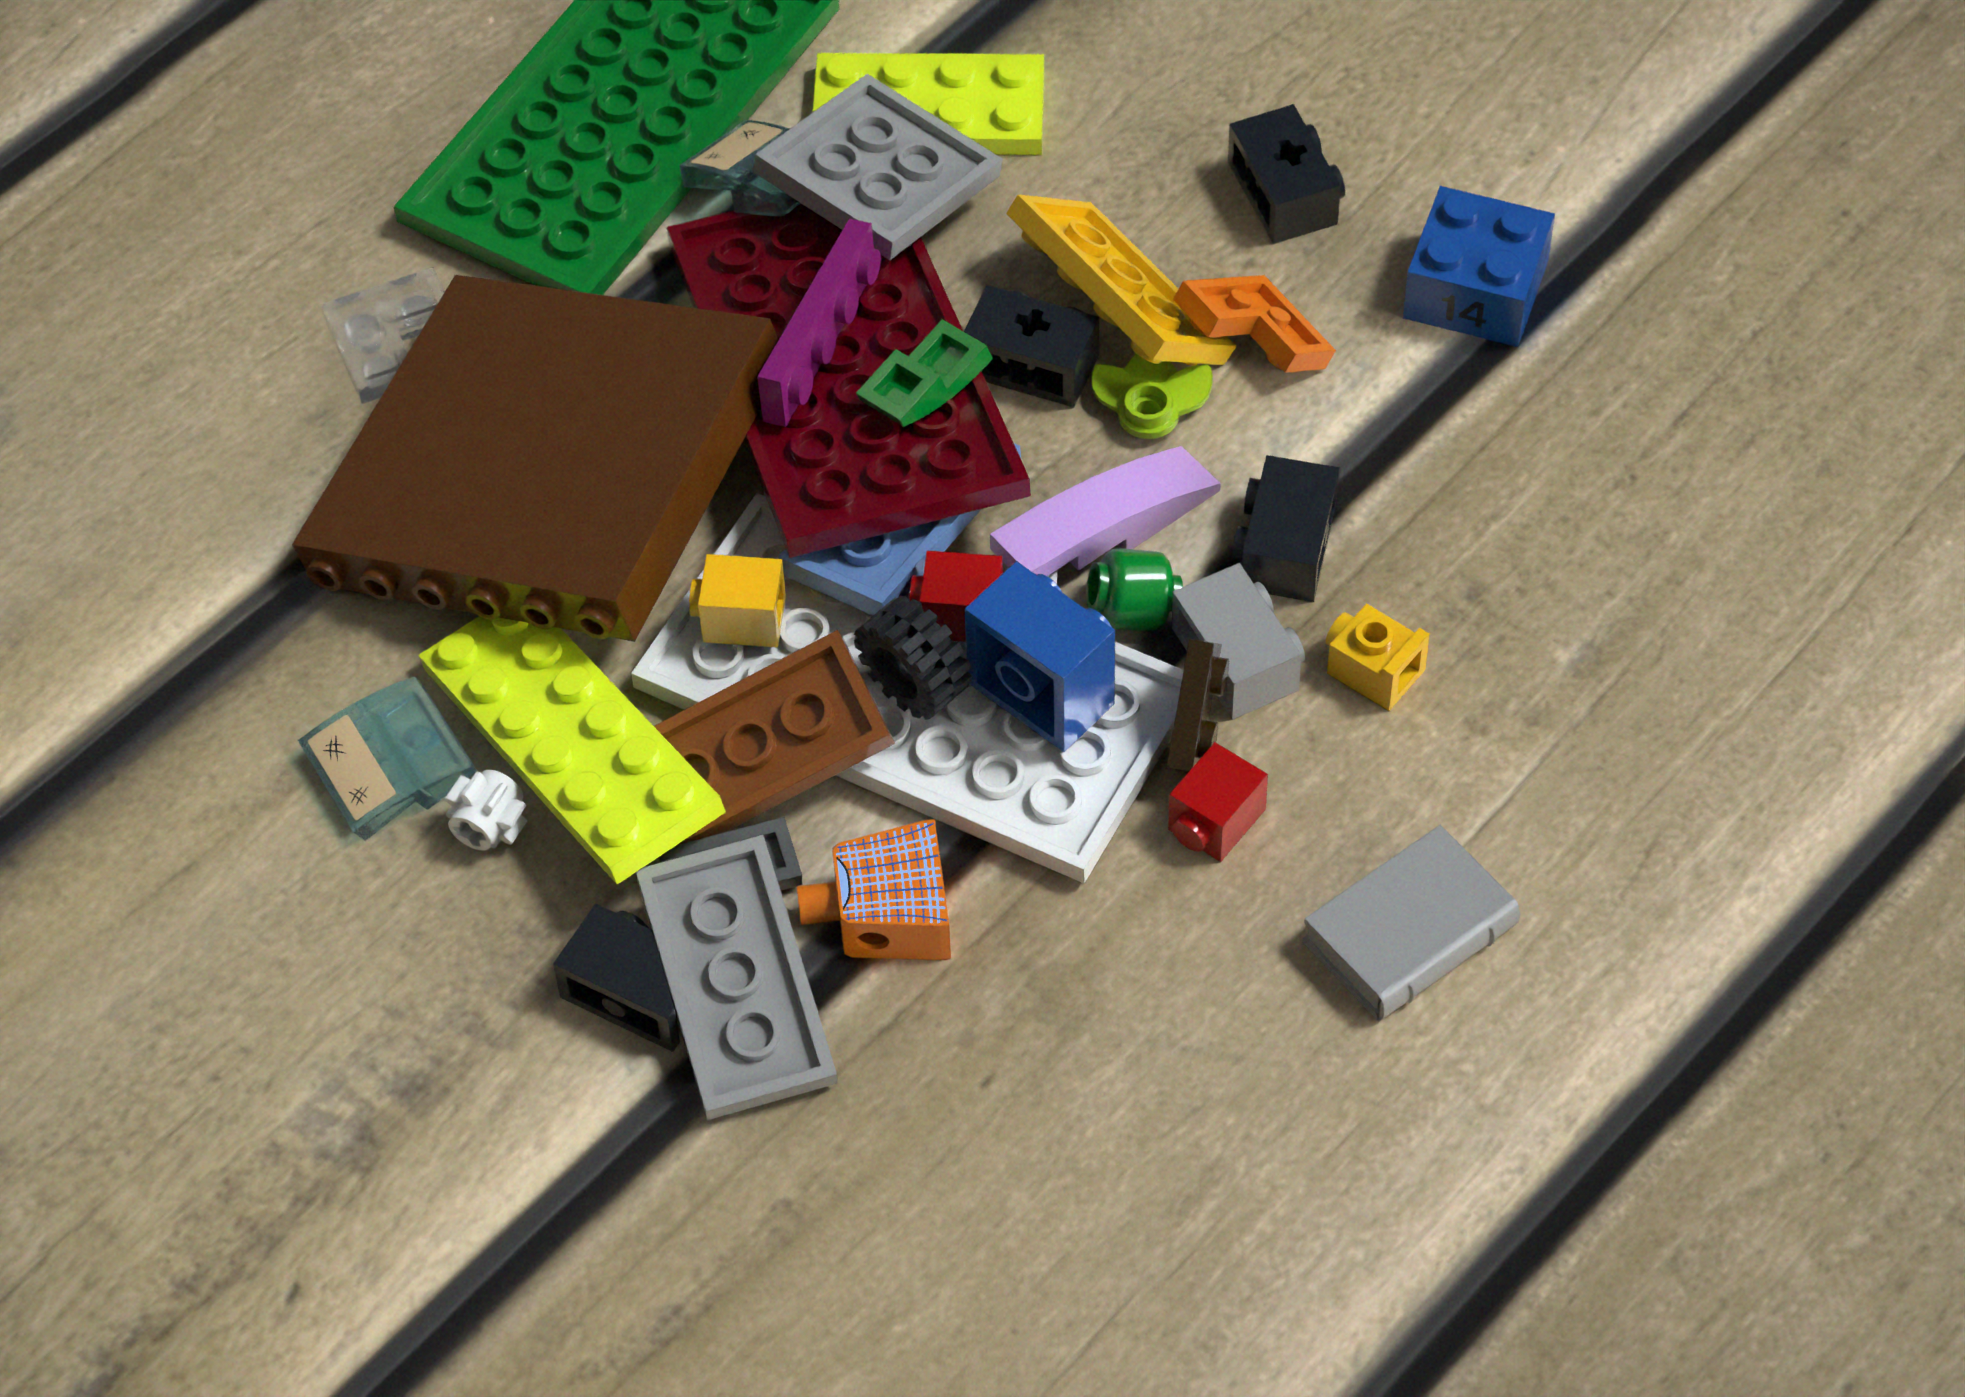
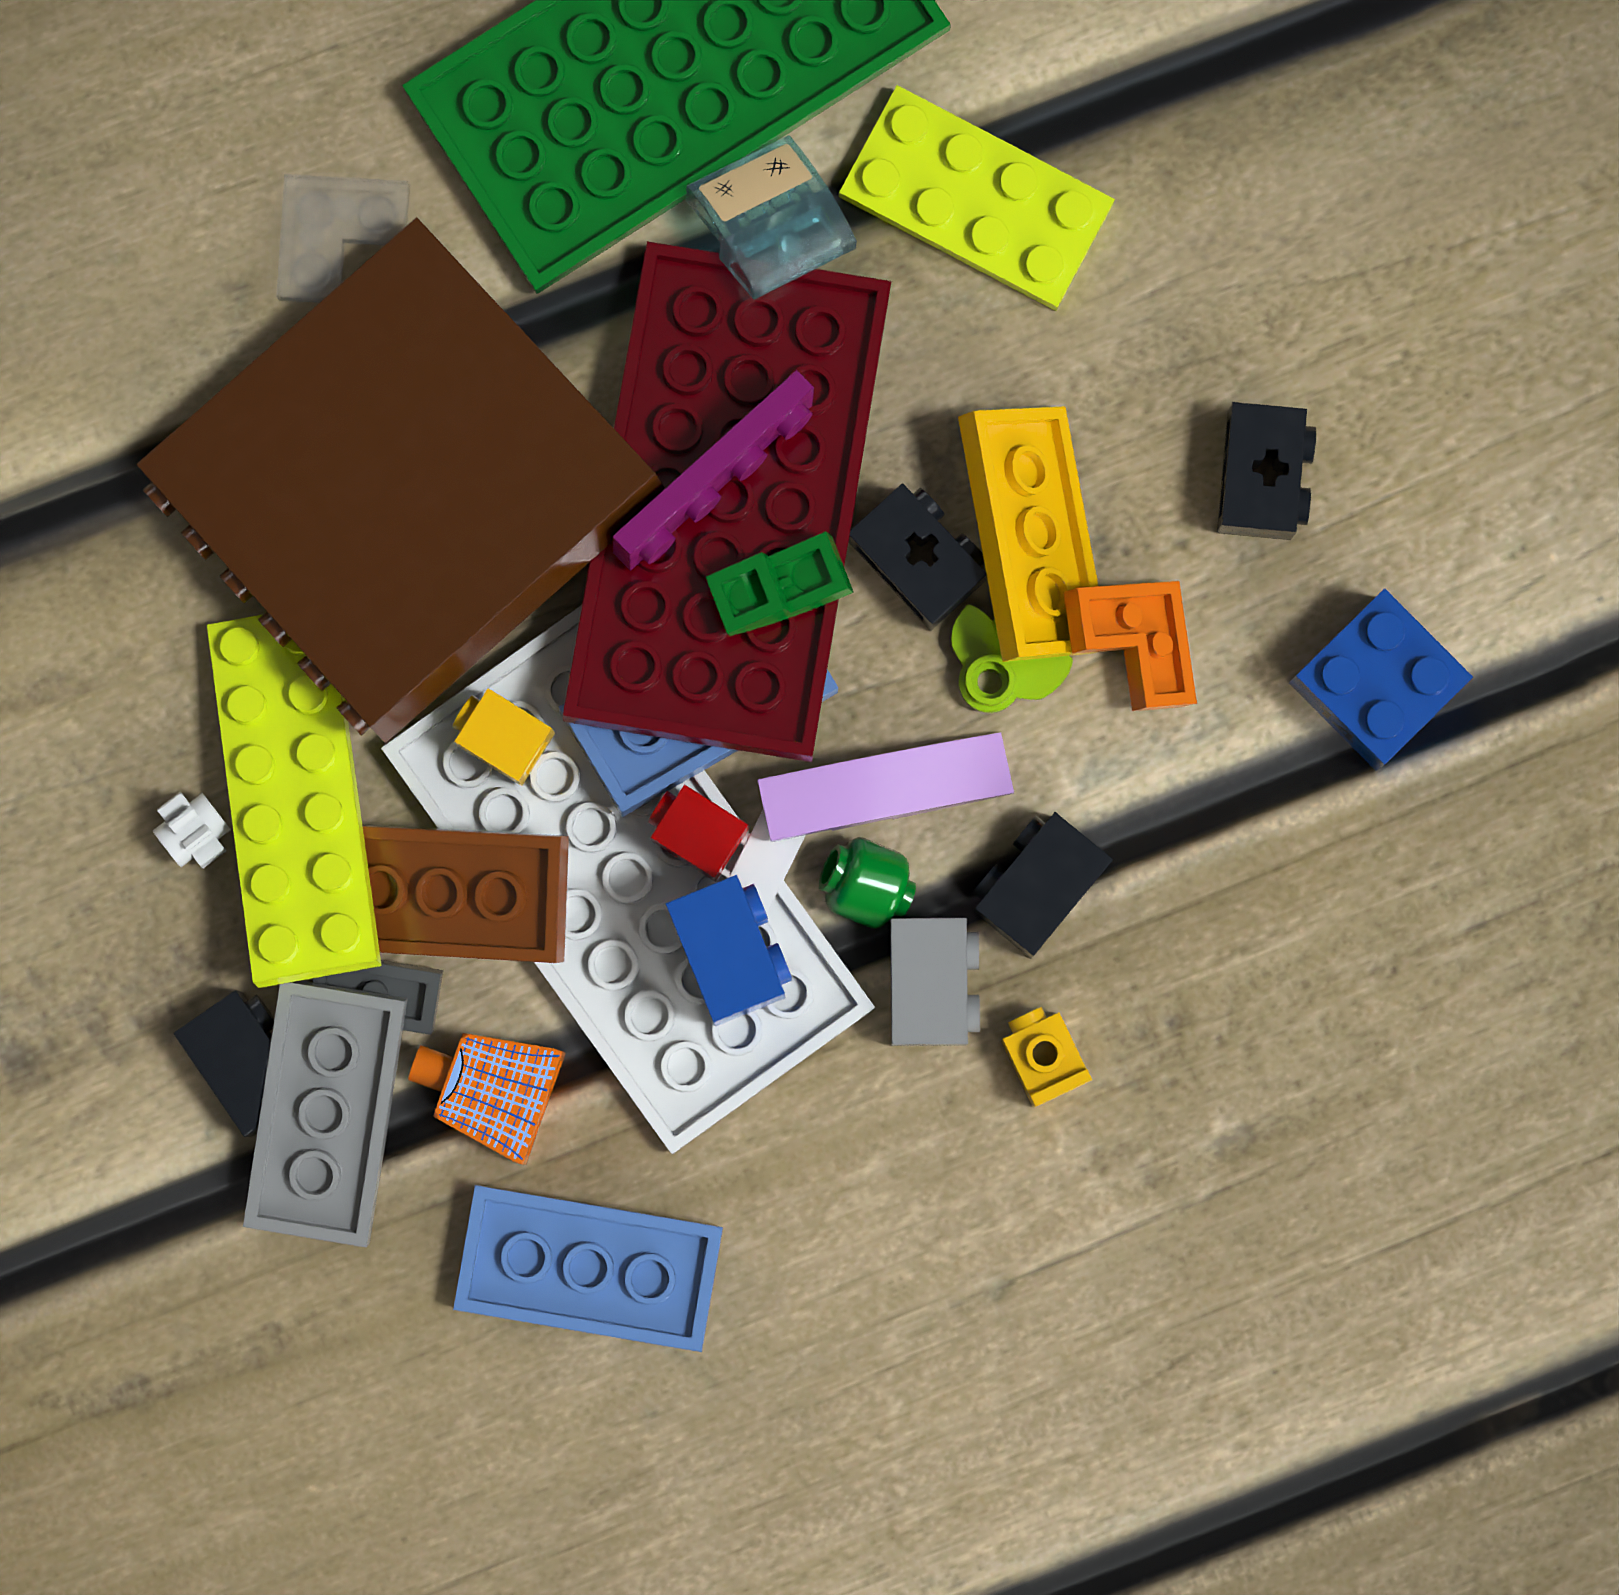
camera: 25 degrees right, 30 degrees up
(386, 756) = (134, 720): clear light blue slope -> none
(878, 163) = (869, 290): light grey plate -> none
(913, 657) = (616, 890): black tyre -> none
(1060, 1003) = (588, 1268): none -> medium blue plate
(1202, 677) = (836, 1067): dark brown plate -> none
(1217, 802) = (819, 1143): red brick -> none
(1410, 922) = (924, 1342): light grey piece -> none

